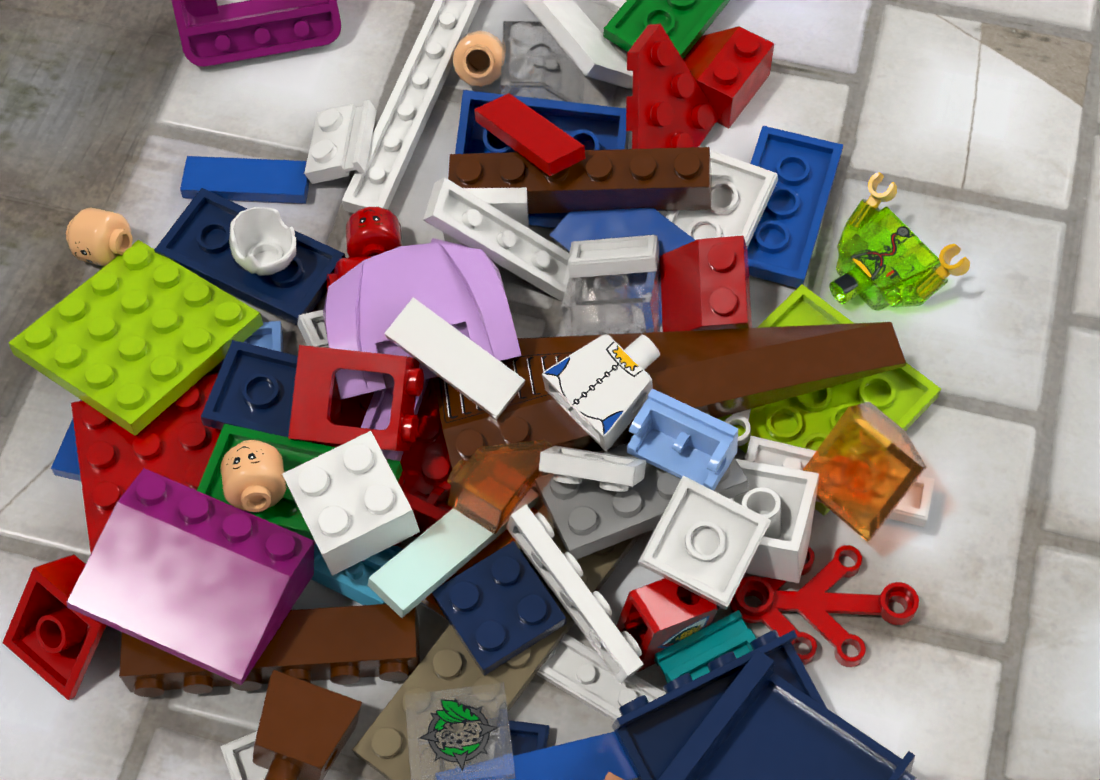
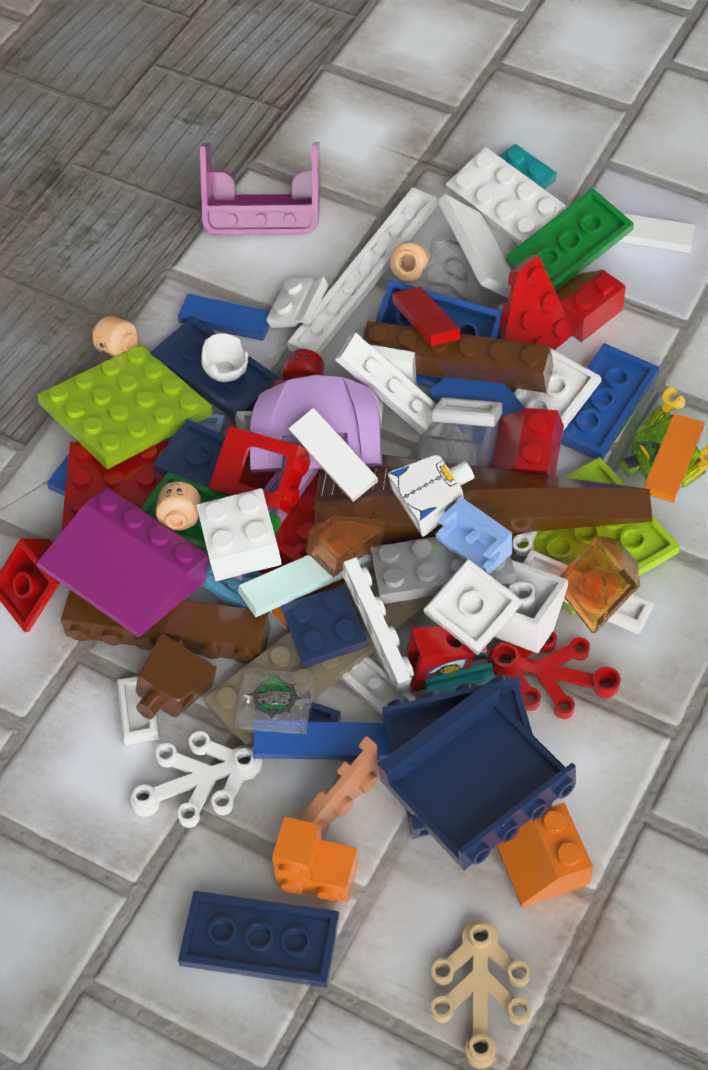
camera: 15 degrees right, 5 degrees down
(572, 465) = (395, 539): white plate -> none
(905, 269) = (674, 457): none -> orange tile

